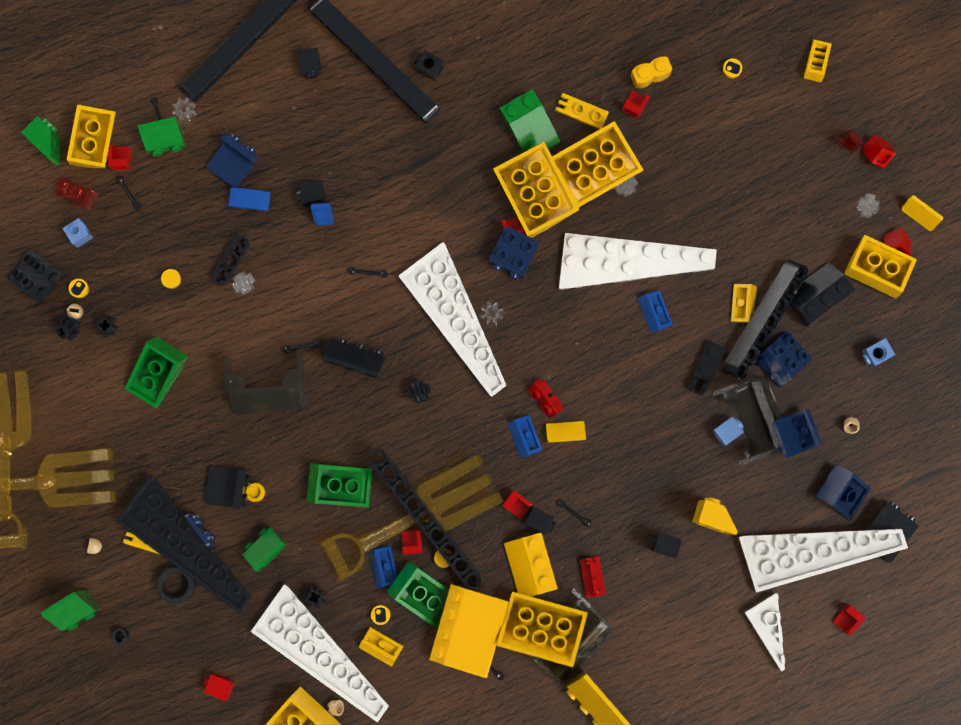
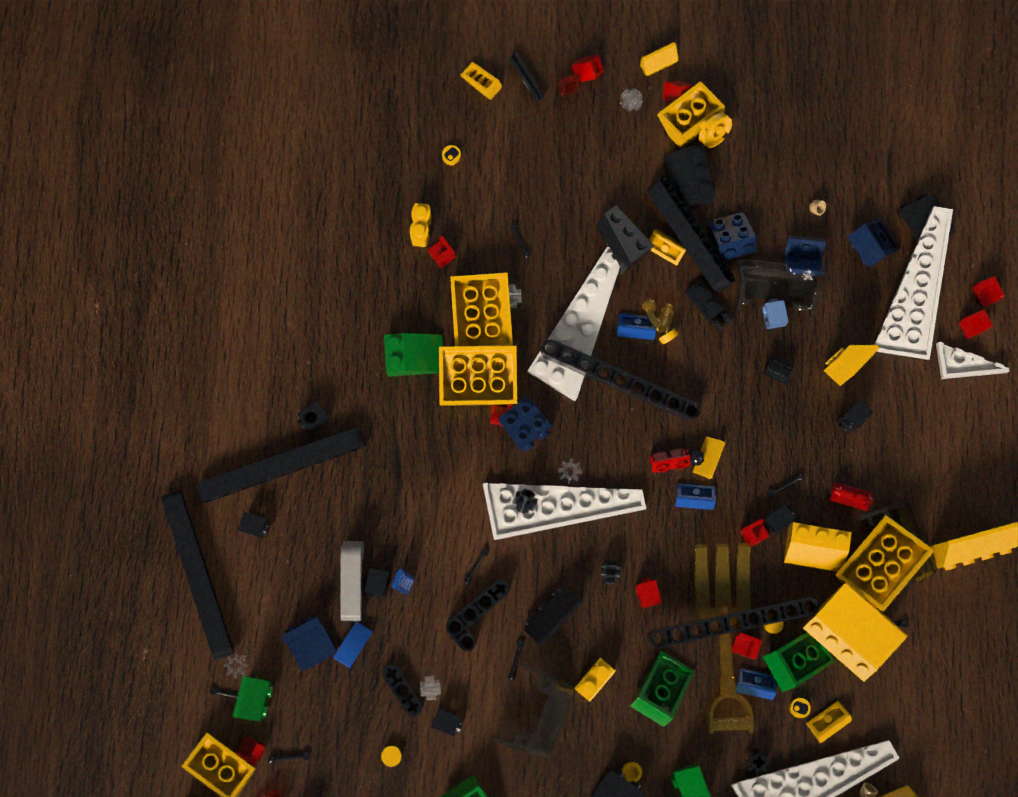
camera: 70 degrees left, 5 degrees down
(221, 311) = (447, 722): none -> black brick
(318, 421) = (594, 679): none -> yellow brick
(321, 159) = (351, 580): none -> light grey beam
(330, 293) = (480, 611): none -> black beam
(416, 433) = (648, 593): none -> red brick
(444, 285) = (525, 501): none -> black gear
(559, 420) = (696, 457): none -> black hinge
(582, 111) = (424, 302): yellow hinge -> none
(599, 309) = (630, 380): none -> black beam
(659, 344) = (668, 336): none -> yellow tile
(670, 333) = (665, 318): none -> clear yellow plant
(677, 457) = (778, 370): none -> black piece
(692, 157) = (513, 228): none -> black hinge
(729, 260) = (624, 239): none -> black wedge
(811, 621) = (975, 324): none -> red panel
(841, 100) = (526, 77): none -> black axle
(876, 294) = (714, 129): none -> yellow plate
(885, 349) = (767, 147): medium blue brick -> none

